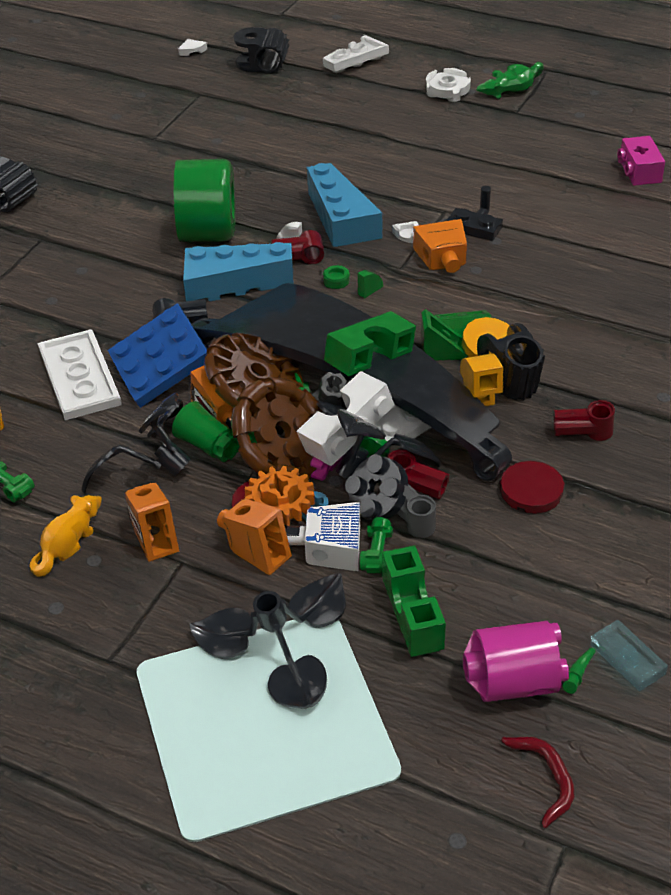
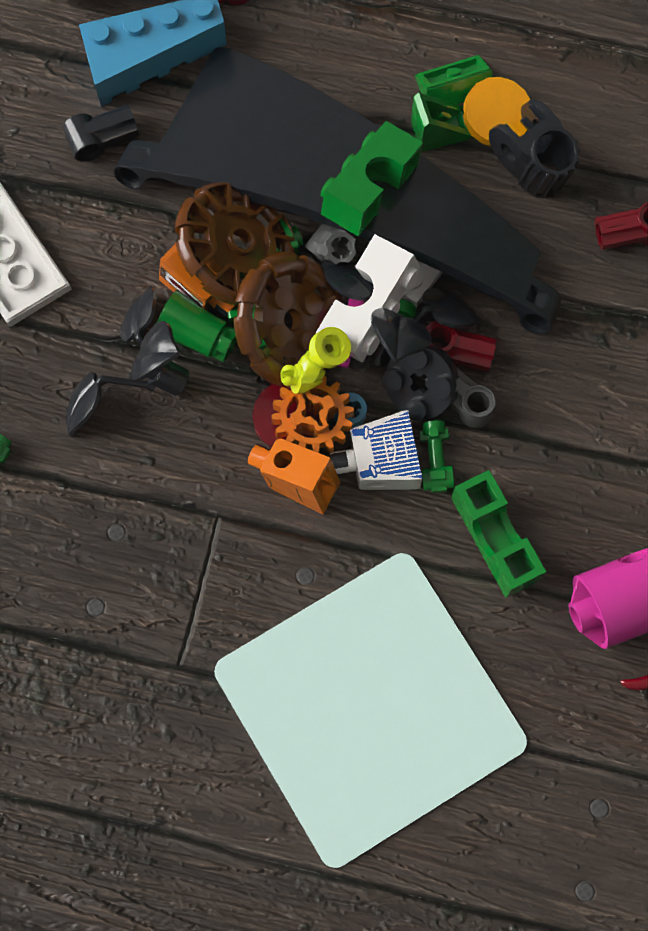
camera: 15 degrees left, 30 degrees up
(63, 533) = (73, 513): light orange animal -> none
(151, 508) = (171, 474): orange torso -> none
(158, 355) = (100, 212): blue plate -> none
(291, 685) = (300, 607): black plant -> none
(300, 436) = (326, 350): none -> neon yellow arm
(336, 277) = (279, 26): green tile -> none
(368, 283) = (324, 35): green tile -> none
(483, 377) = (510, 191): light orange brick -> none
(532, 486) = (589, 333): dark red tile -> none

